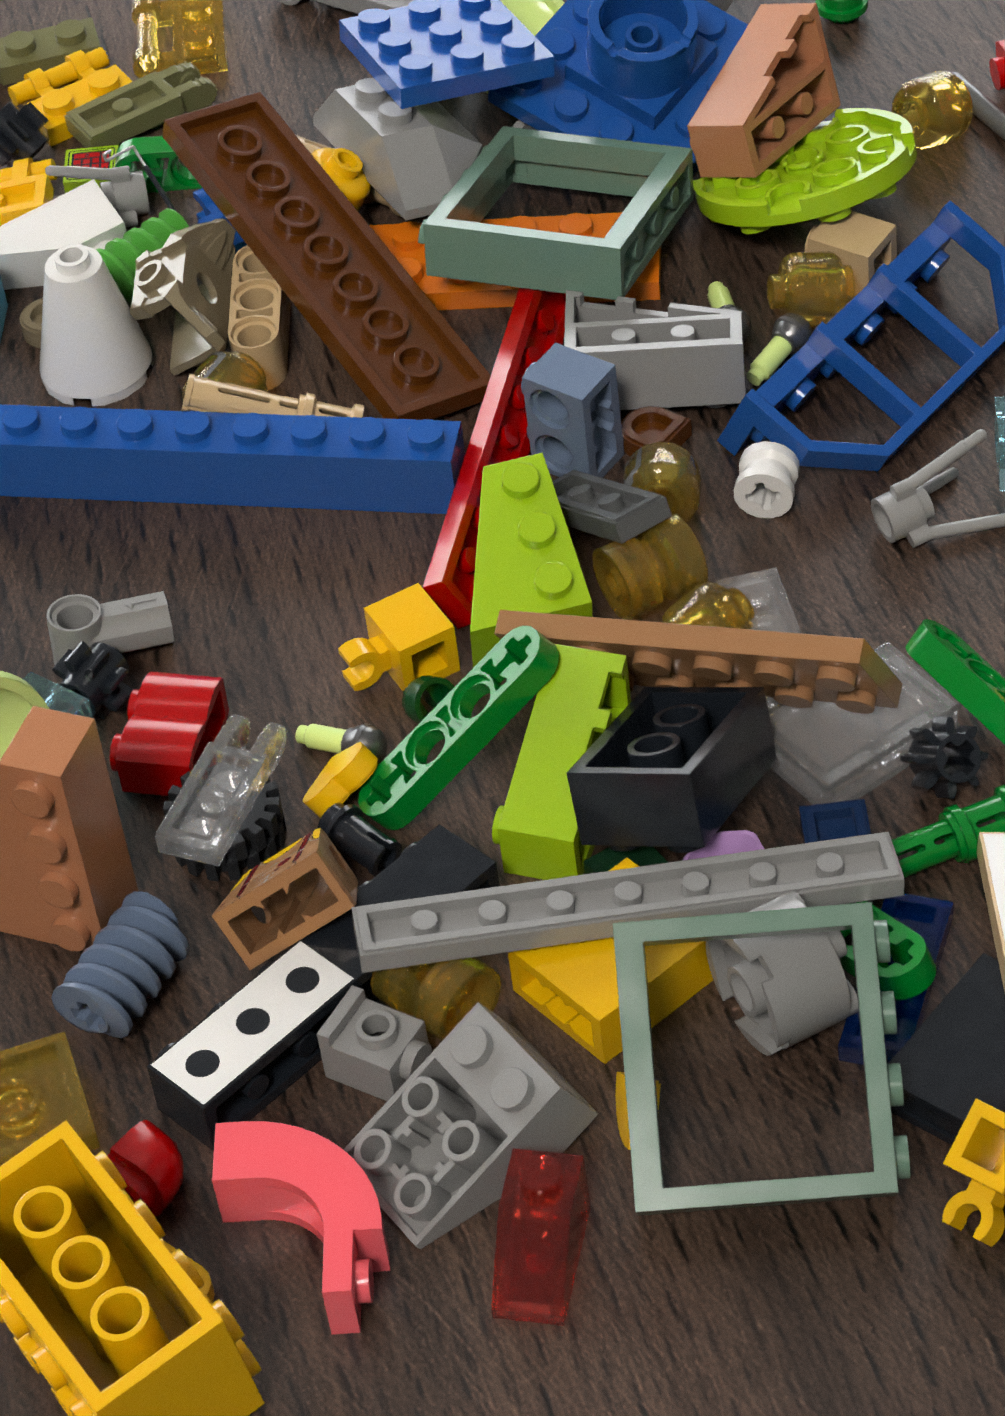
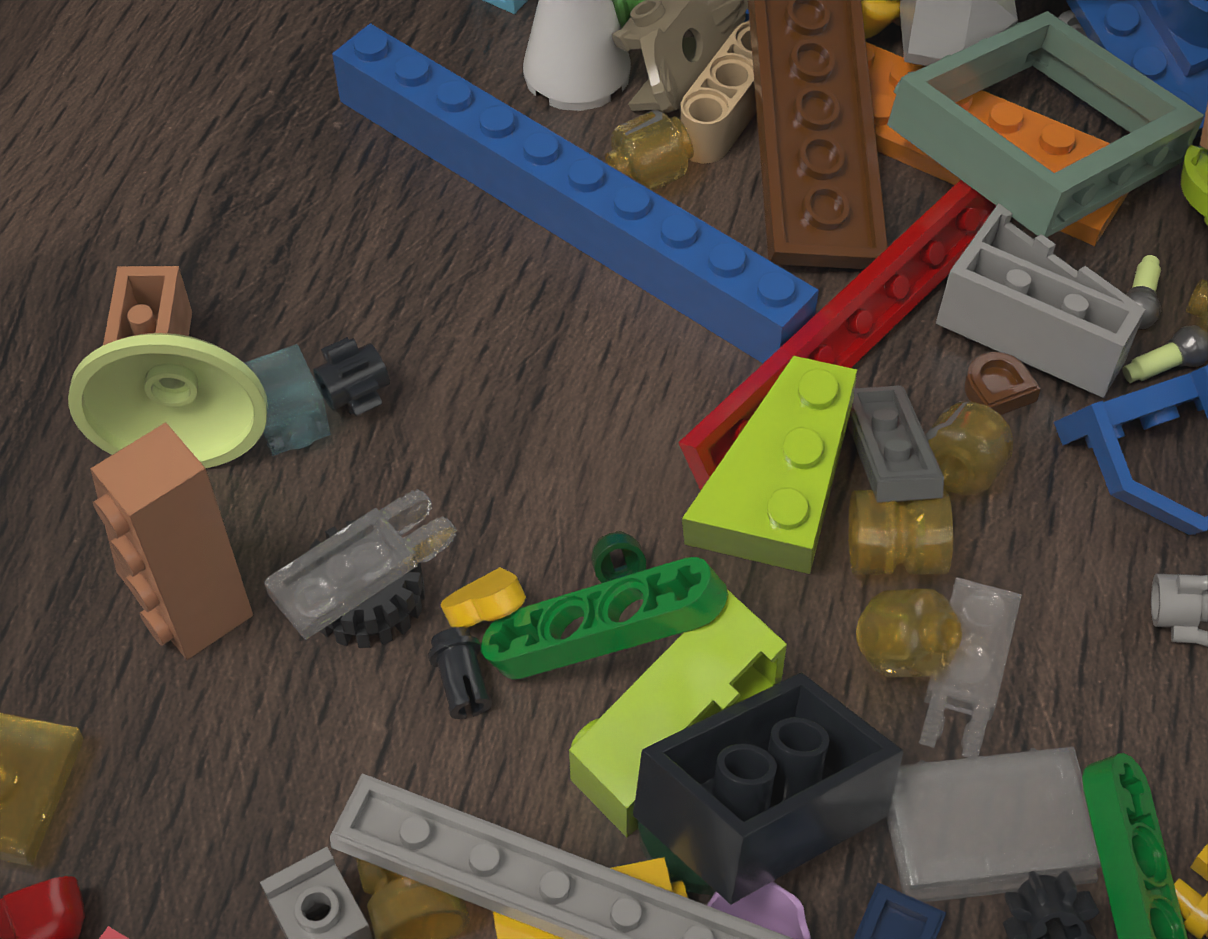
camera: 25 degrees right, 10 degrees up
(122, 967) = (168, 693): sand blue piece -> none
(123, 623) = (403, 330): light grey piece -> none
(167, 730) = (378, 463): red brick -> none
(215, 396) = (637, 163): tan pin -> none
(269, 1028) = (234, 837): brick -> none
(298, 892) = (340, 712): medium nougat torso -> none
(337, 739) = (533, 569): piece -> none
(405, 639) = (636, 485): yellow brick -> none
(573, 412) = (926, 333): sand blue brick -> none
(766, 479) = (1070, 494): white wheel -> none
(788, 665) = (872, 692): medium nougat plate -> none

